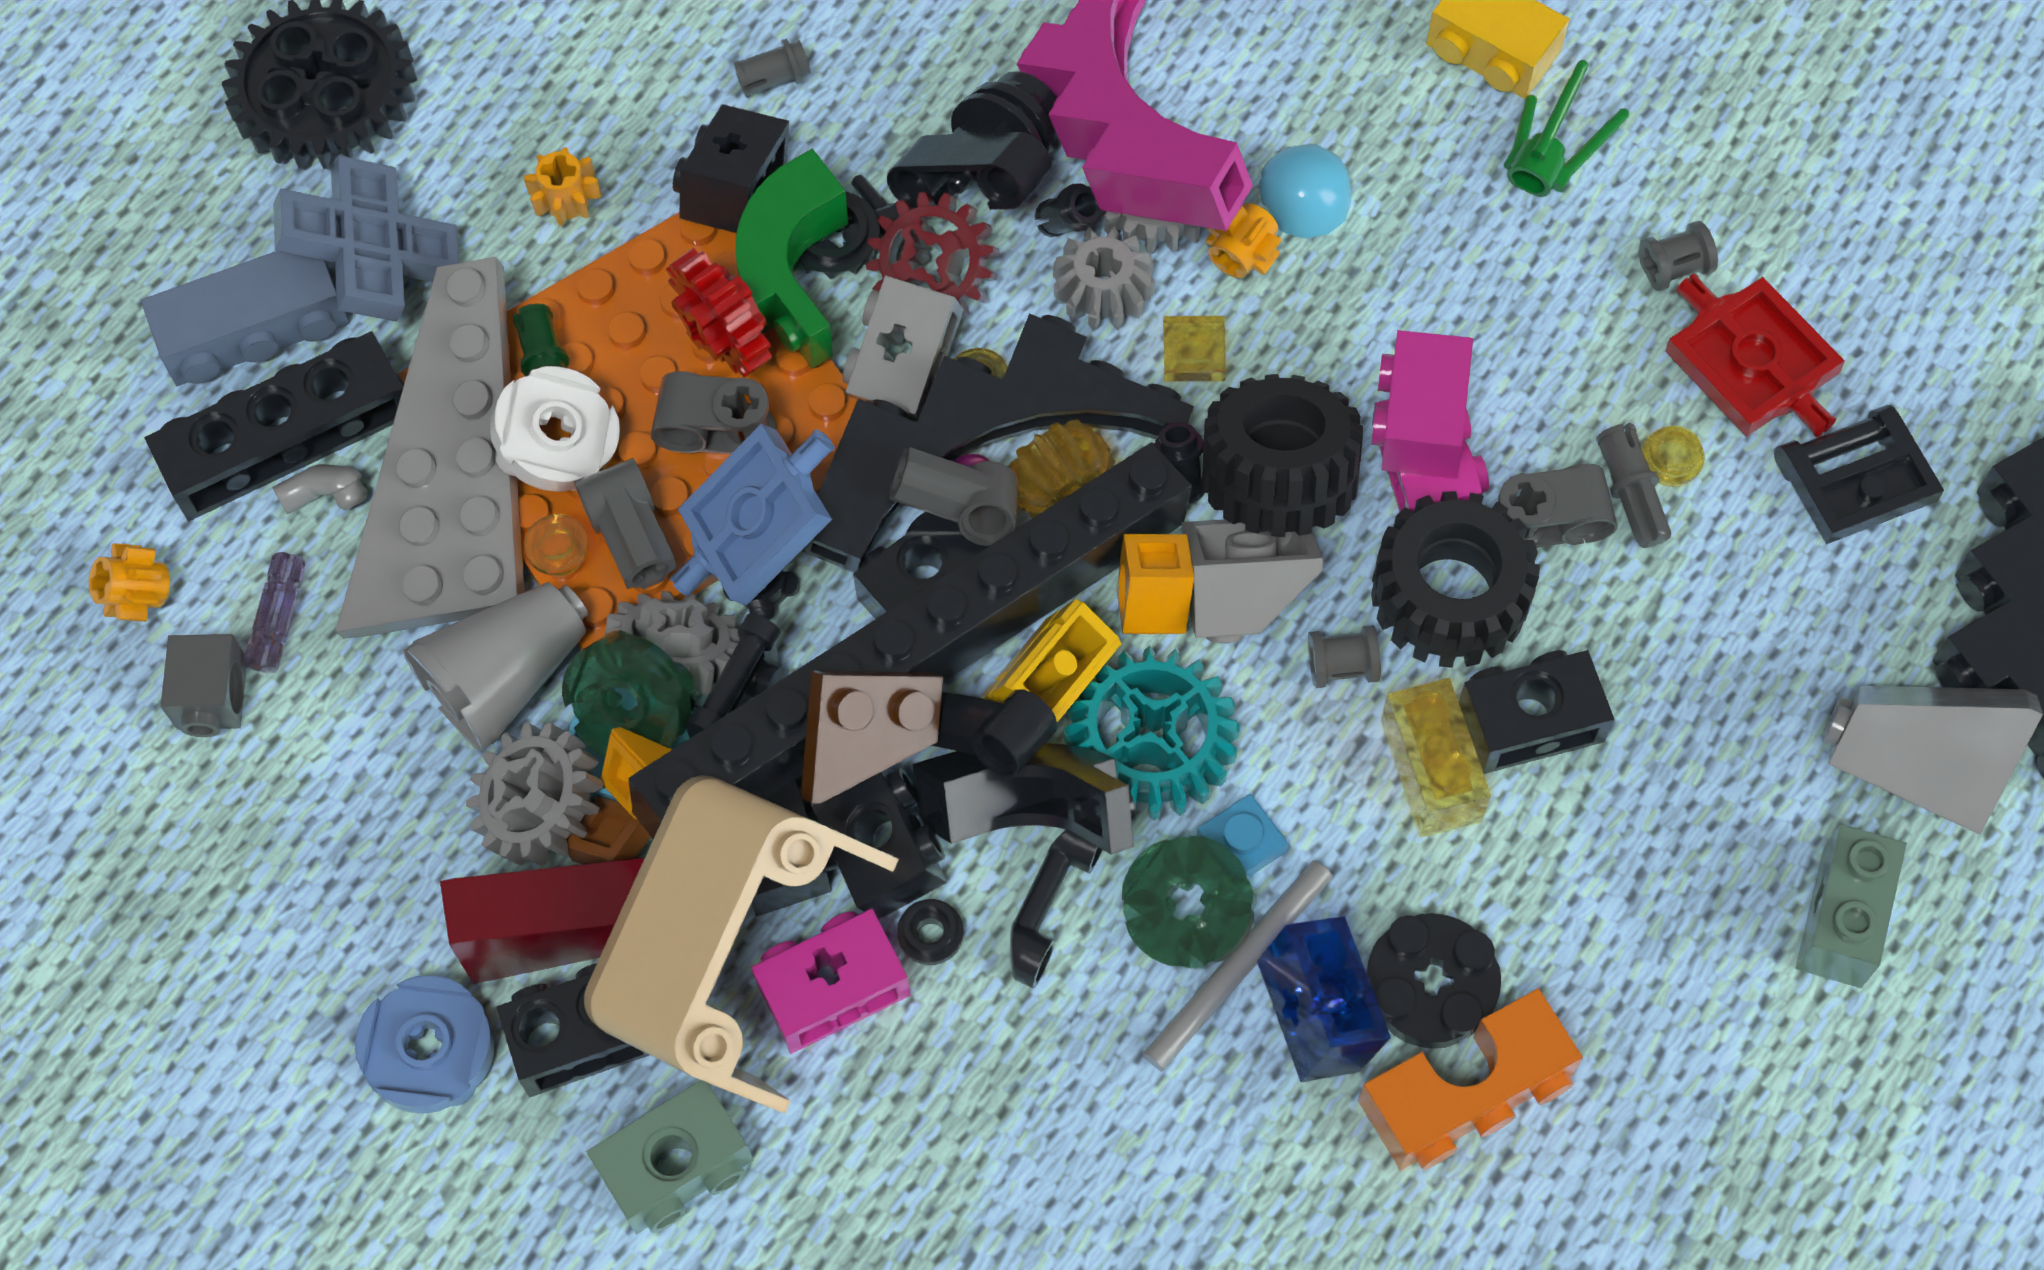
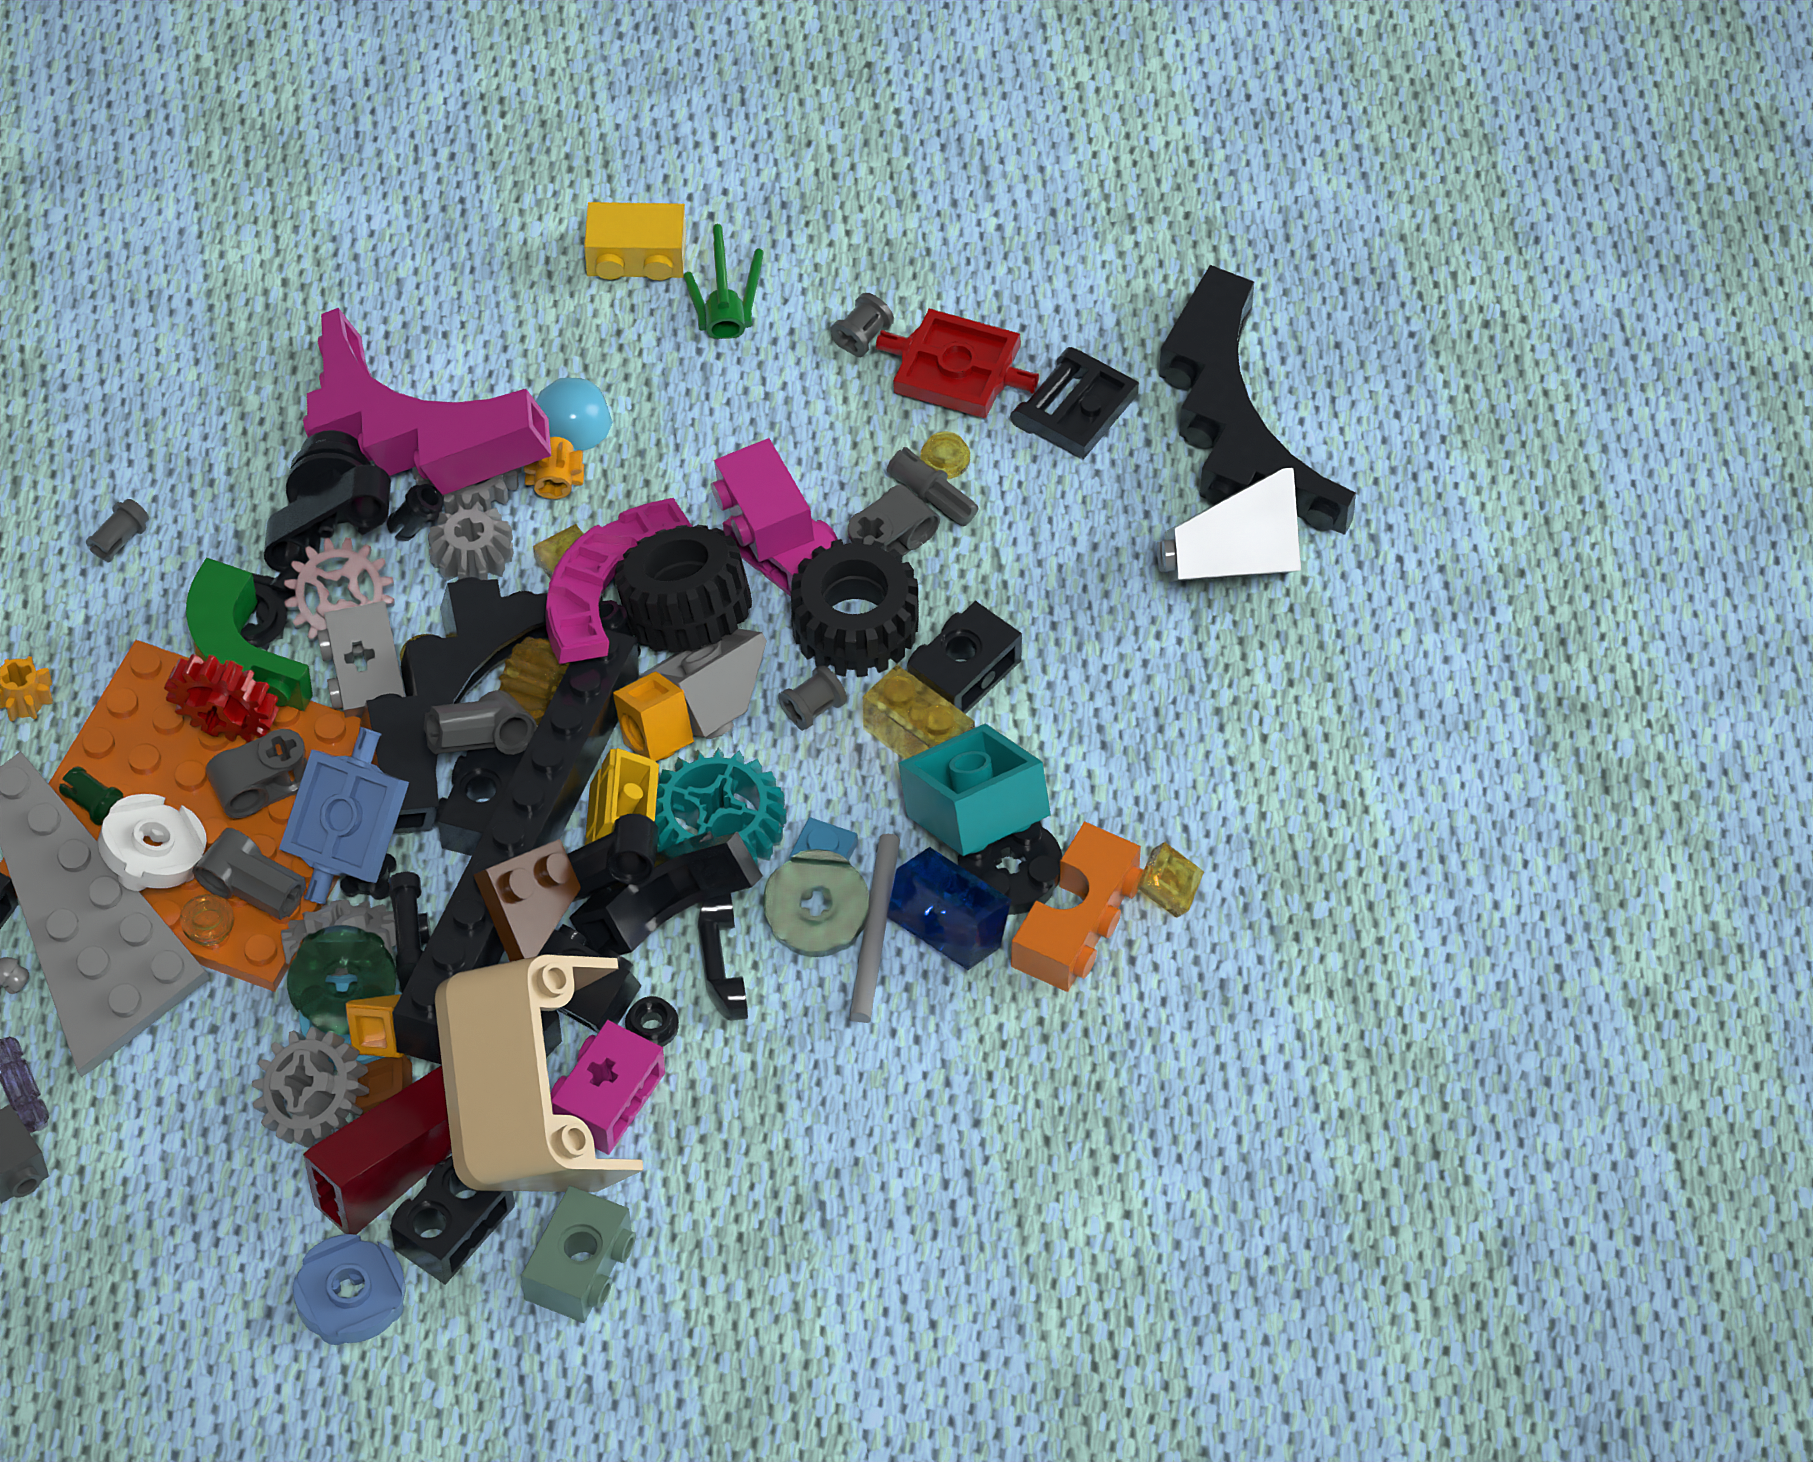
camera: 35 degrees left, 10 degrees down
(497, 659) = (218, 1019): light grey cone -> none
(729, 165) = (145, 608): black brick -> none
(1191, 378) = (587, 570): none -> dark pink tile
(1437, 879) = (974, 789): none -> teal brick
(1597, 1112) = (1170, 879): none -> clear yellow plate
(1851, 906) = (1248, 667): sand green brick -> none

